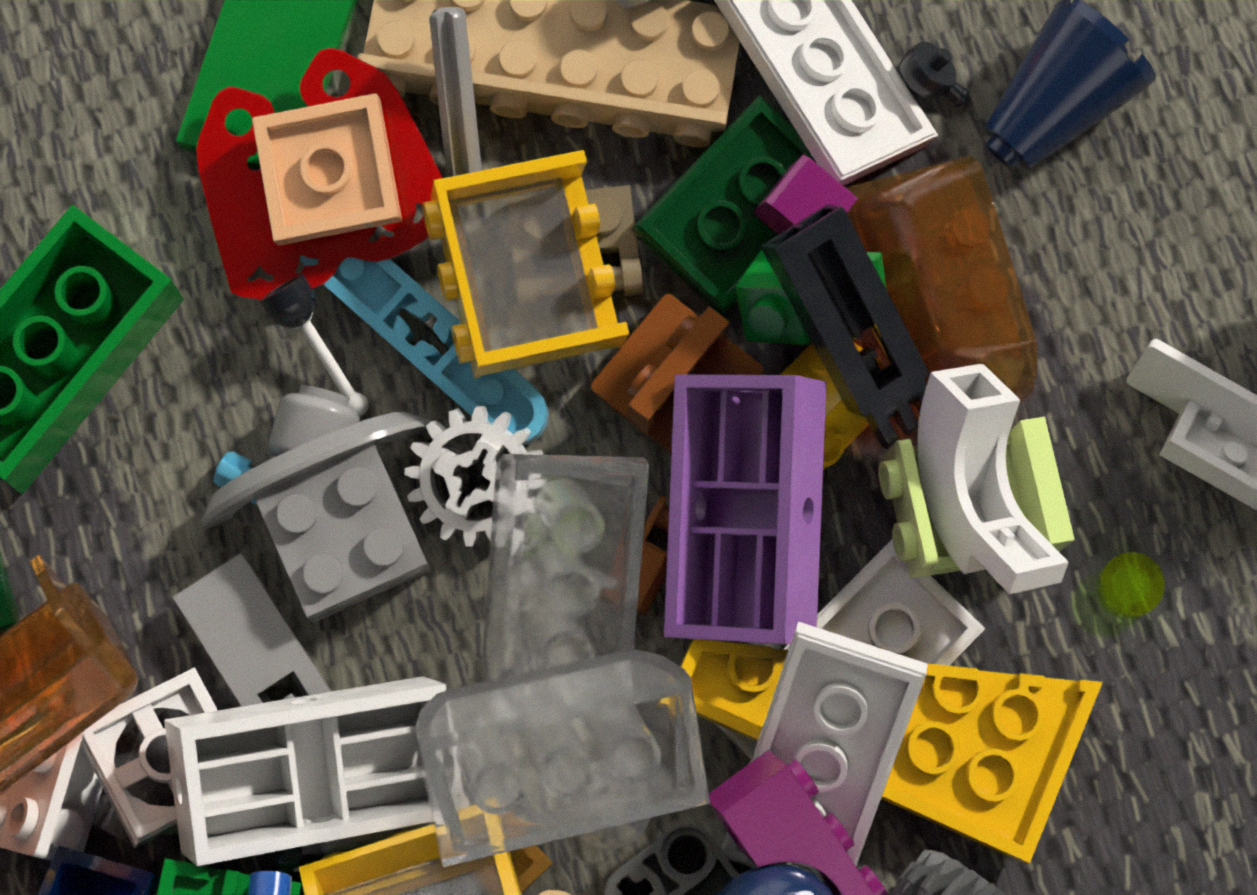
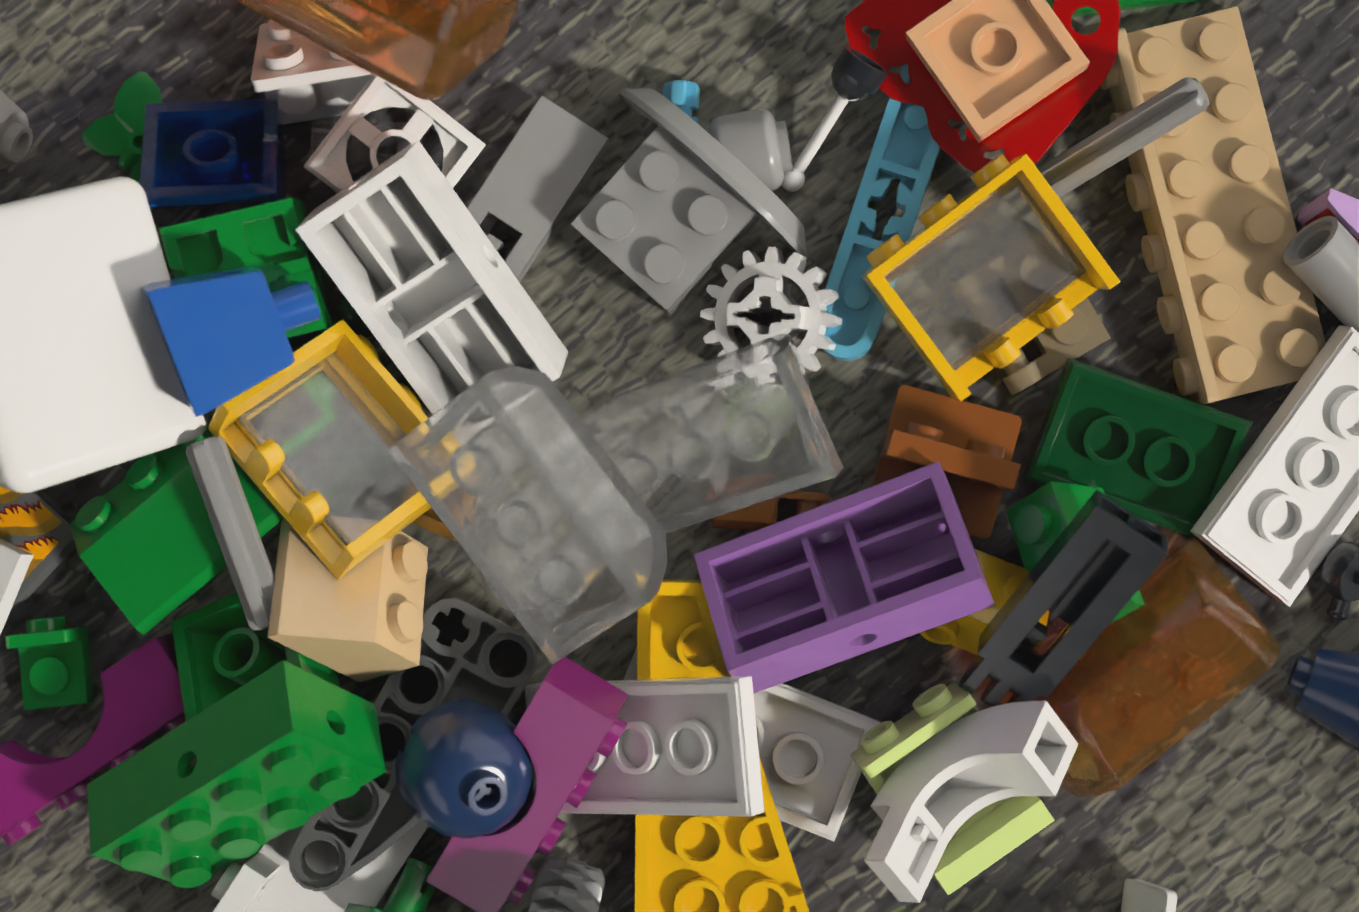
camera: 70 degrees right, 10 degrees up
(800, 193) = (1169, 505): magenta piece -> none

